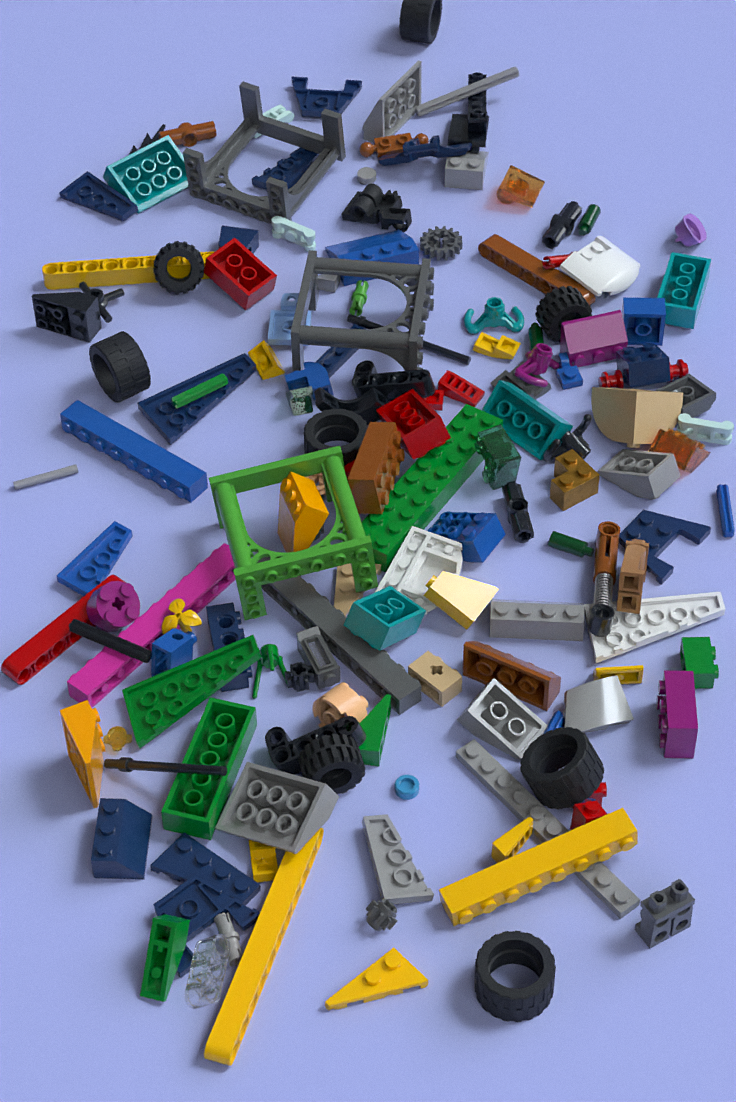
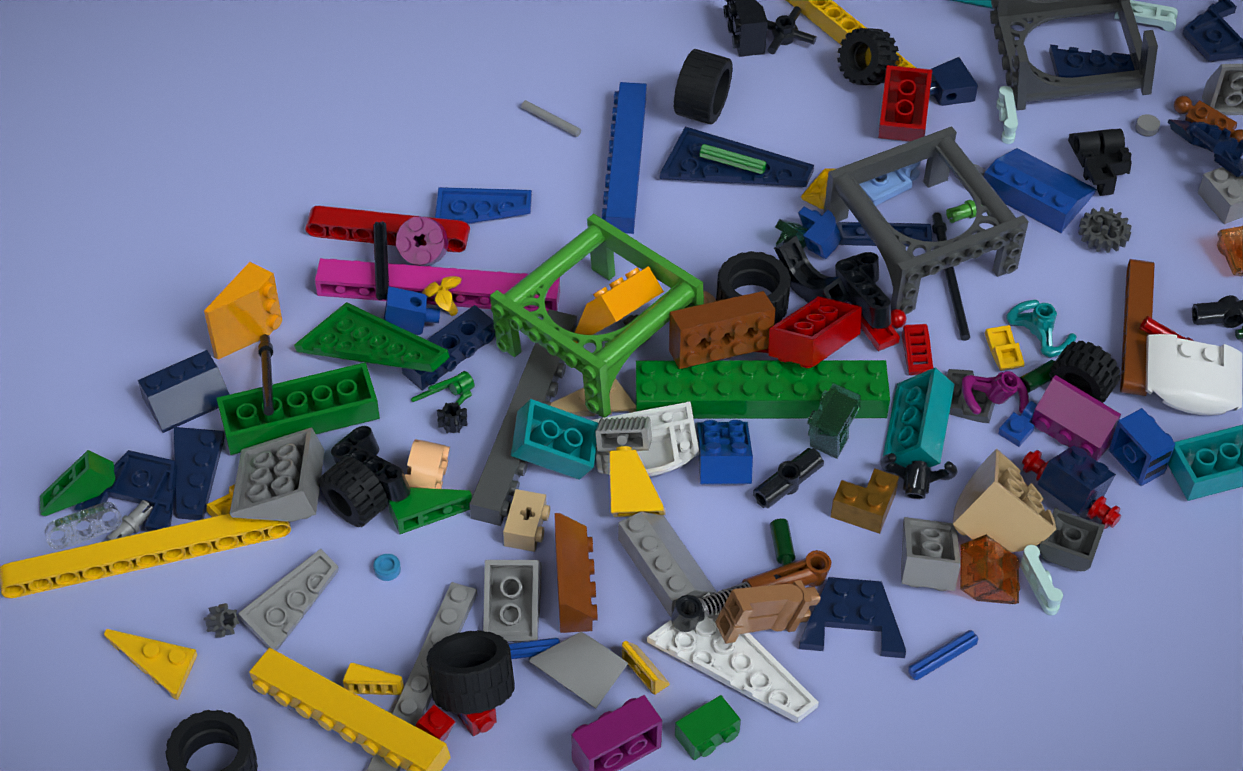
camera: 55 degrees right, 5 degrees up
(117, 733) = (294, 329): clear yellow plate -> none
(318, 656) = (483, 420): dark grey window -> none
(415, 574) = (624, 432): none -> light grey brick

